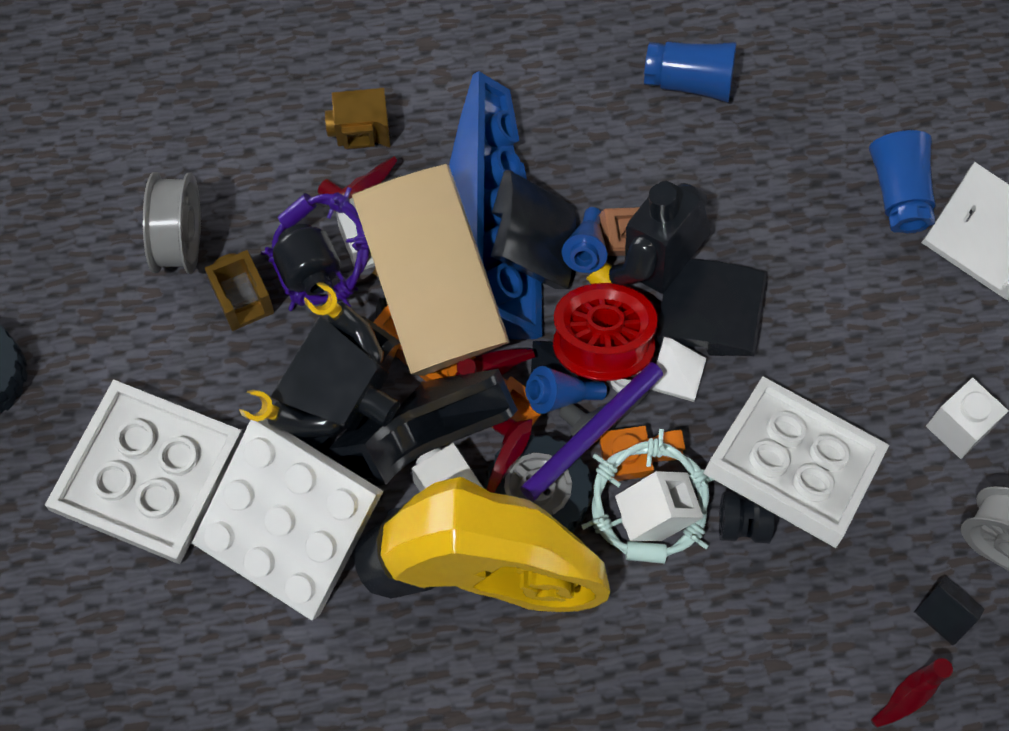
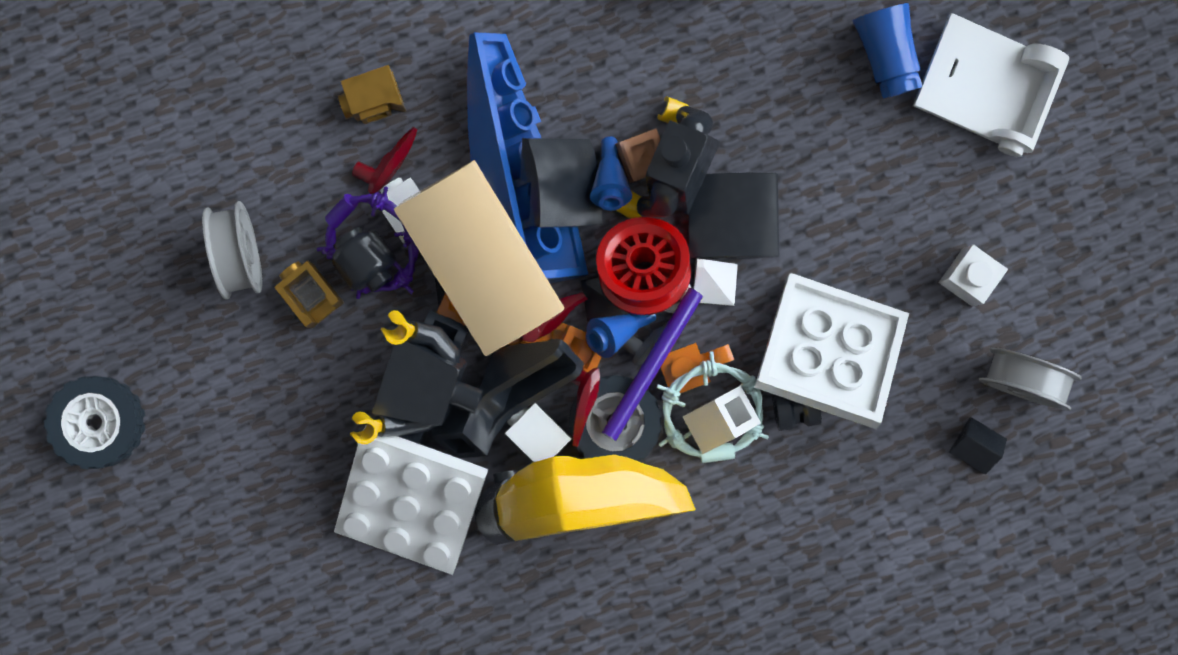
camera: 15 degrees left, 20 degrees up
(145, 471) = (276, 478): white plate -> none
(914, 692) = (956, 523): dark red bar -> none

